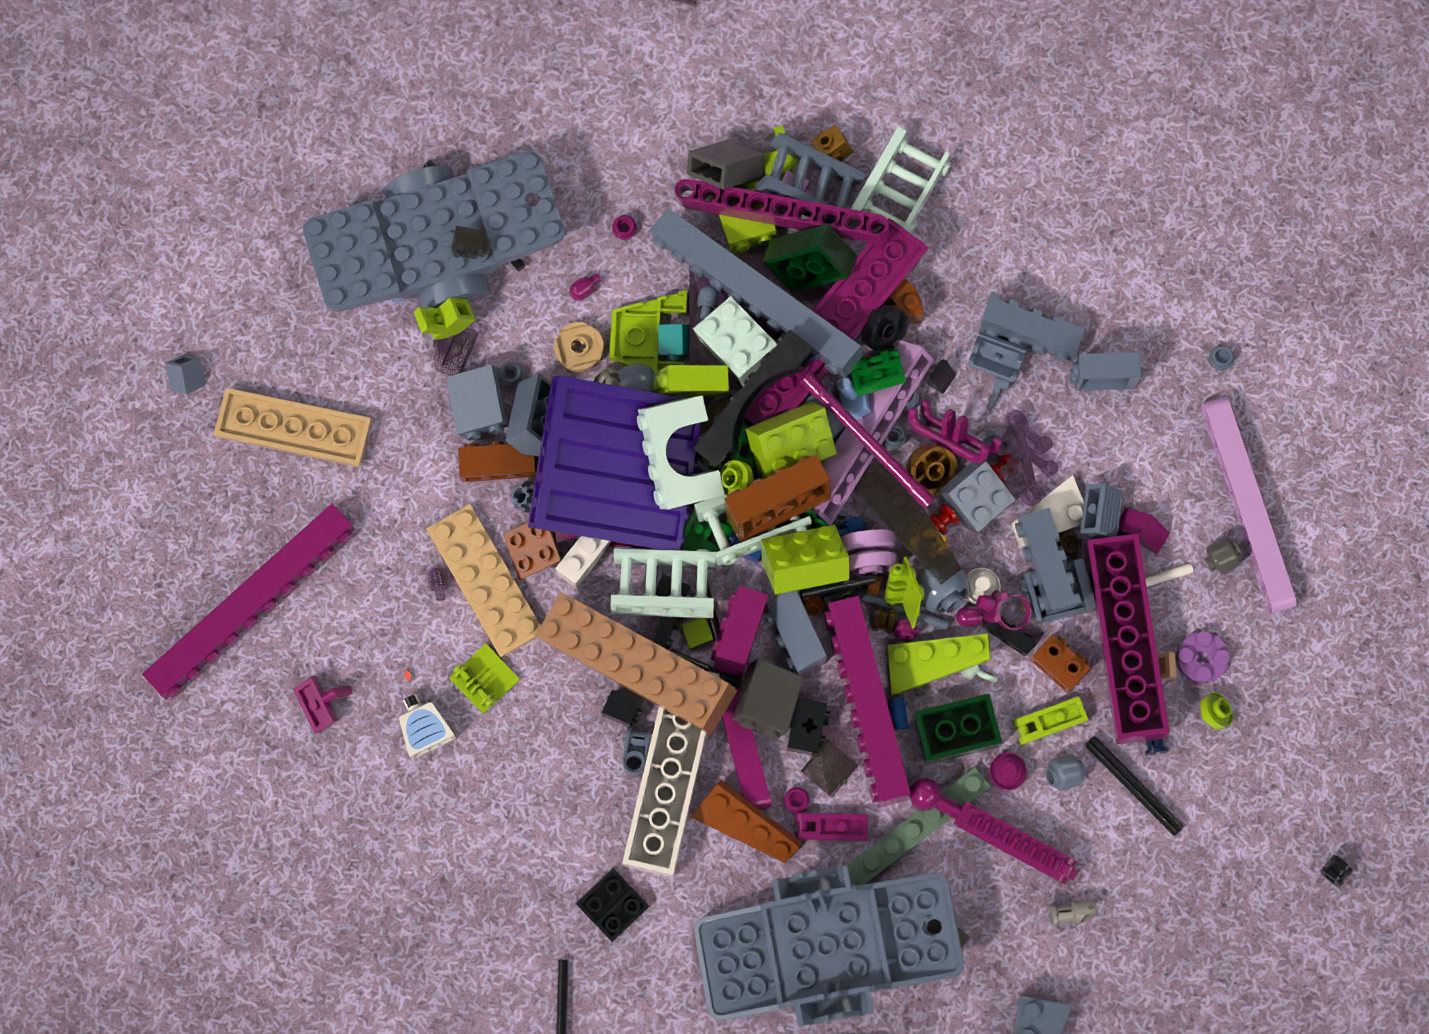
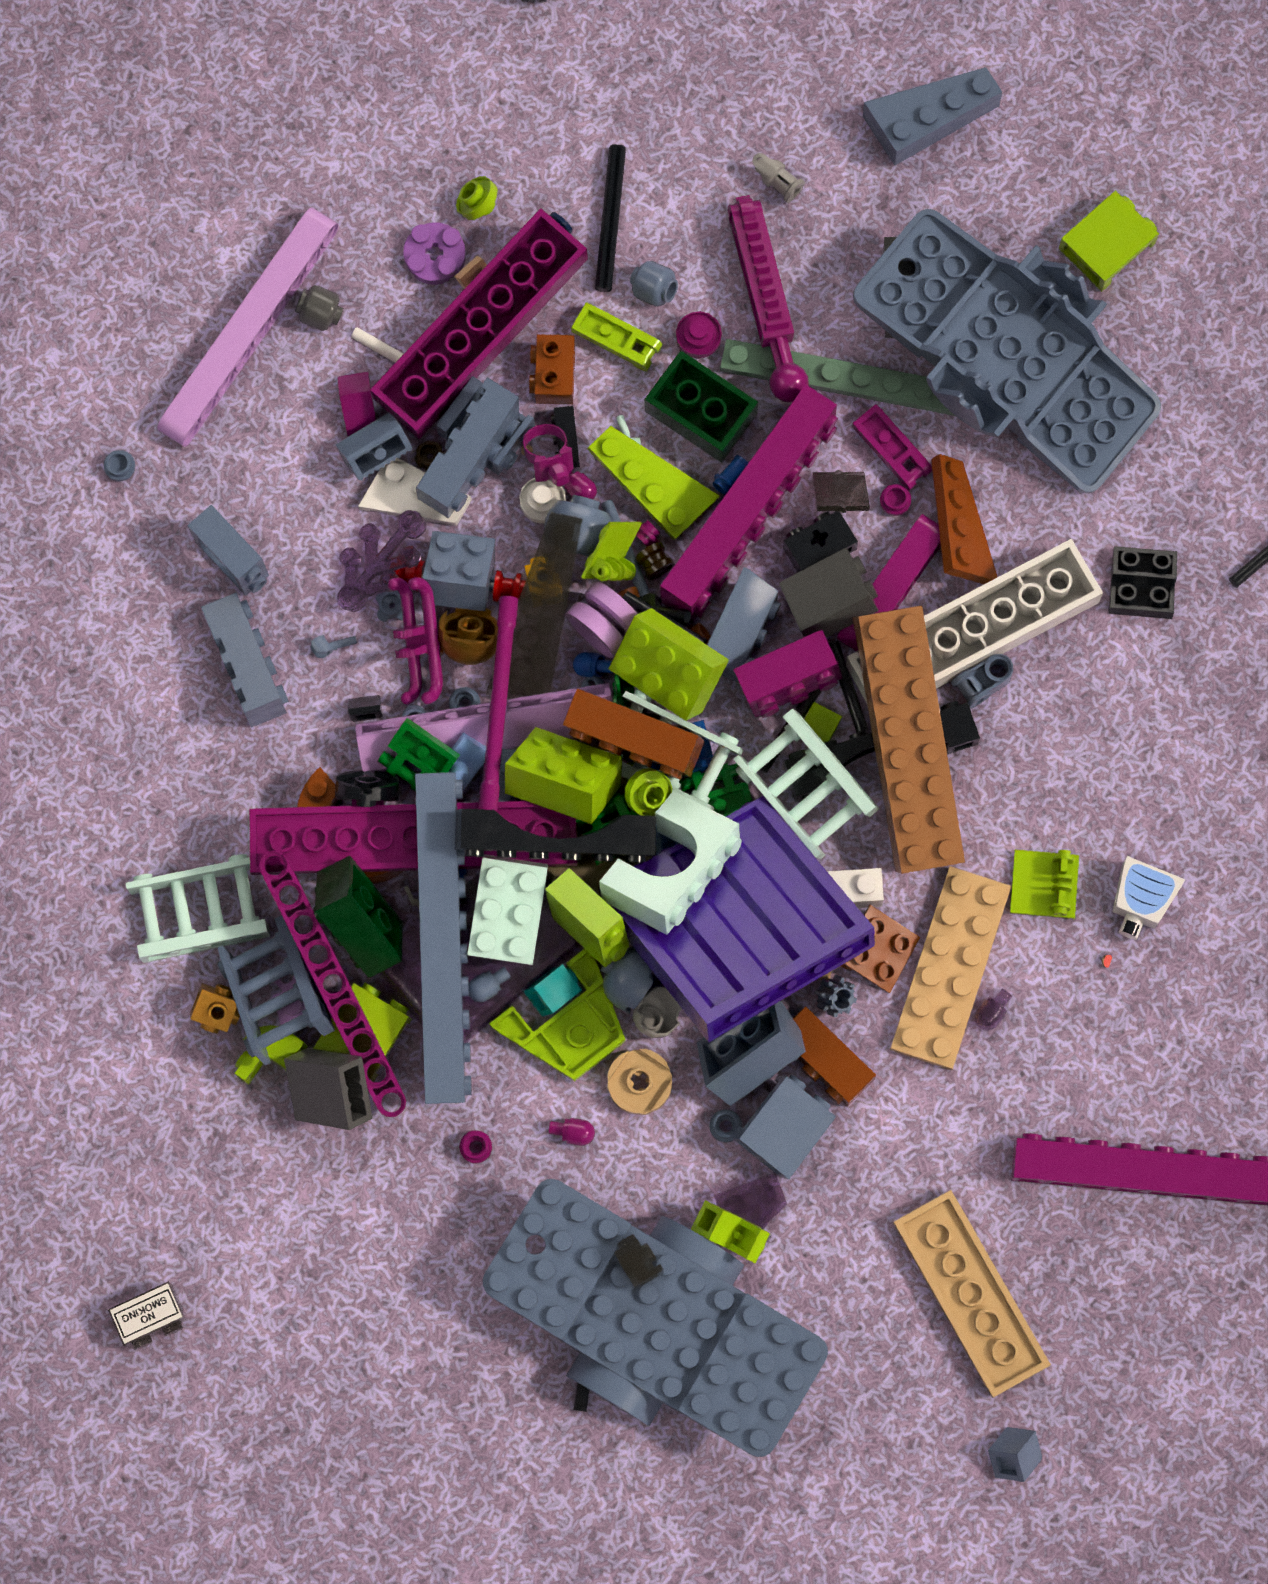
camera: 130 degrees left, 0 degrees up
(317, 702) = (1215, 1017): magenta plate -> none
(997, 356) = (301, 668): sand blue hinge -> none

